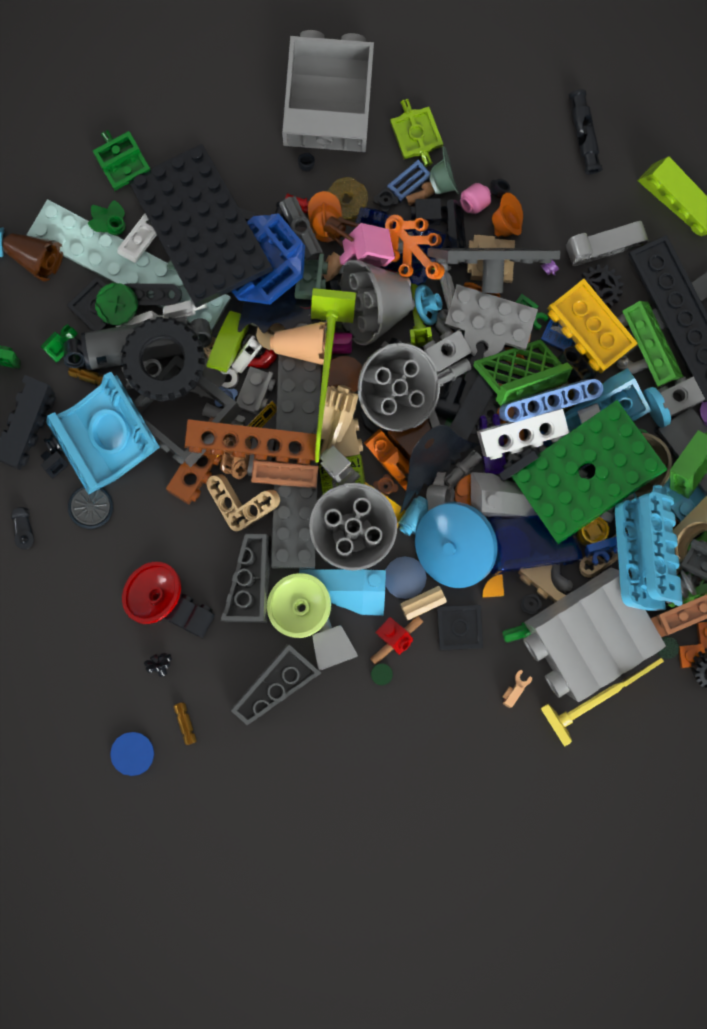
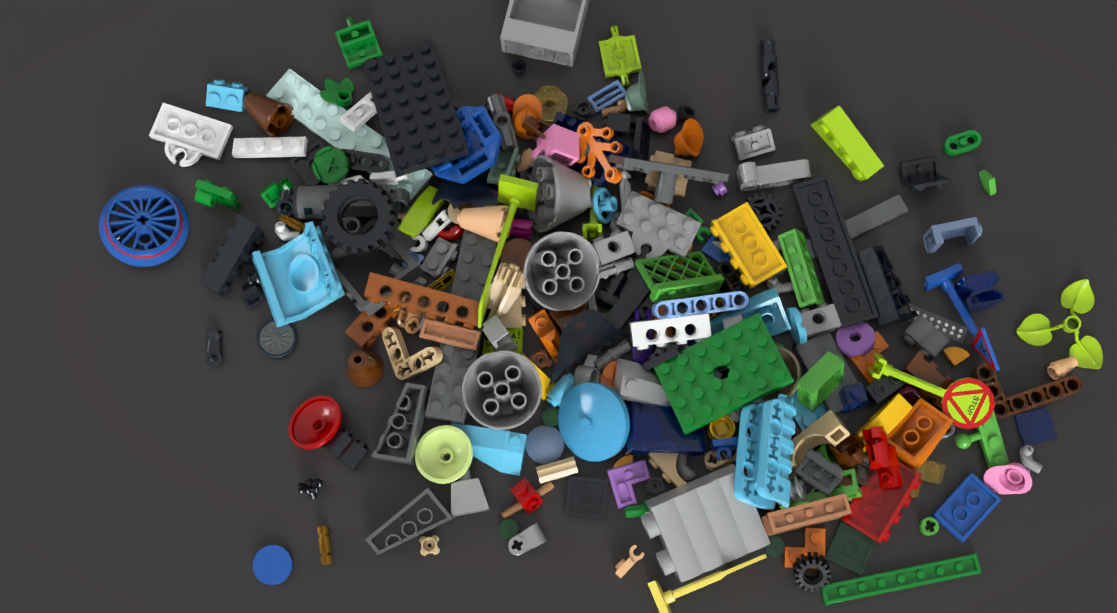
camera: 20 degrees right, 5 degrees down
(42, 293) = (269, 147): none -> white plate
(77, 388) = (284, 233): none -> white arm
(194, 532) = (364, 368): none -> reddish brown cone
(304, 709) = (429, 540): none -> tan plate
(406, 546) = (550, 416): none -> dark green plate
(406, 682) = (530, 539): none -> light grey piece
(495, 601) = (623, 478): none -> medium lavender tile
(579, 209) = (753, 142): none -> light grey bracket

